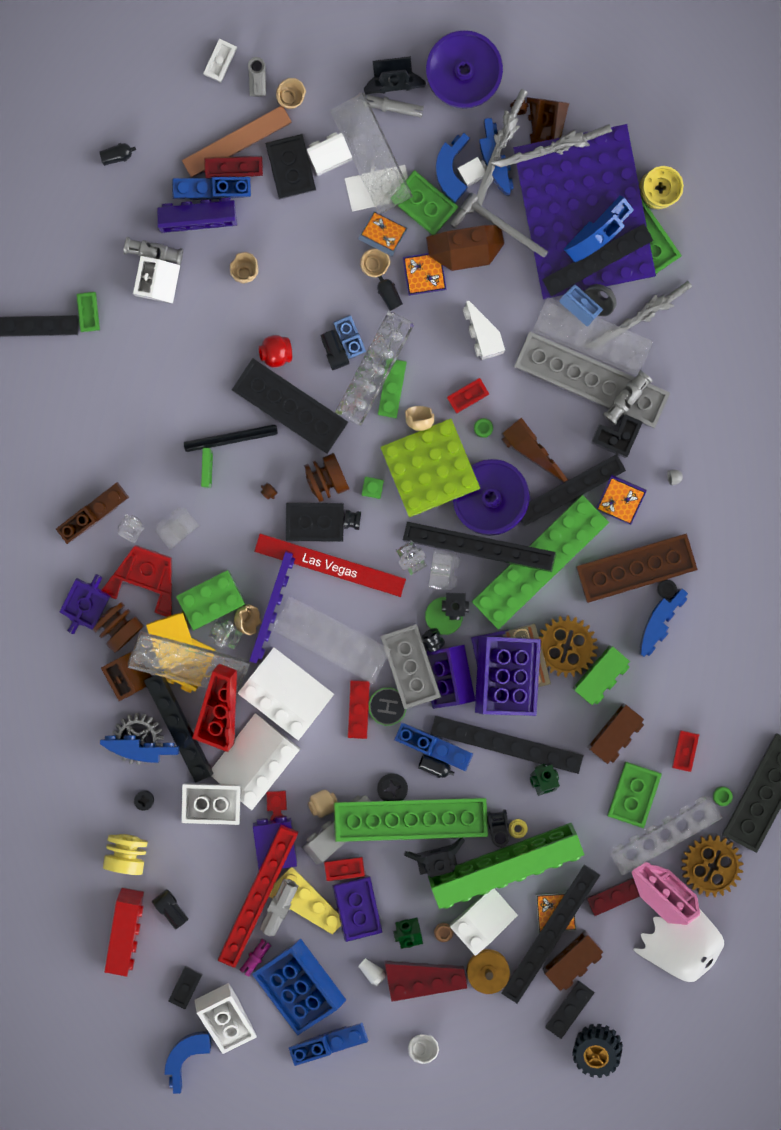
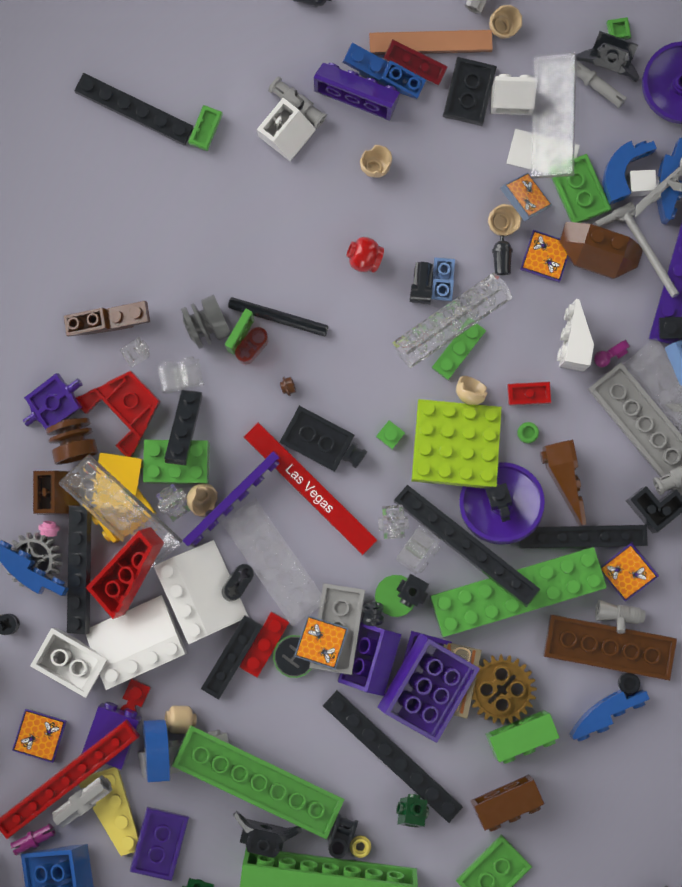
camera: 25 degrees right, 5 degrees down
(136, 707) = (49, 528): none -> bright pink plate
(175, 474) = (205, 322): none -> dark grey wheel
(202, 569) = (183, 427): none -> black plate
(216, 477) = (245, 346): none -> clear red beam
(217, 874) = (39, 735): none -> tile
(289, 406) = (351, 315): black plate -> none
(316, 671) = (241, 585): none -> black beam
(317, 835) = (156, 750): none -> blue arch
(326, 477) = (350, 400): reddish brown wheel -> none
(337, 733) = (231, 657): none -> black plate
(344, 868) = (167, 796): red plate -> none
(388, 48) = (619, 28): none -> bright green tile
(397, 780) = (251, 732): black gear -> none
(403, 684) = (321, 642): none -> tile
(433, 746) = (319, 720): blue slope -> none
(435, 766) = (310, 741): black piece -> none
(487, 495) = (500, 499): none -> black plate
(513, 335) = (603, 358): none -> magenta plate
(631, 536) = (620, 613): none -> light grey piece
(685, 751) = (567, 856): red plate -> none

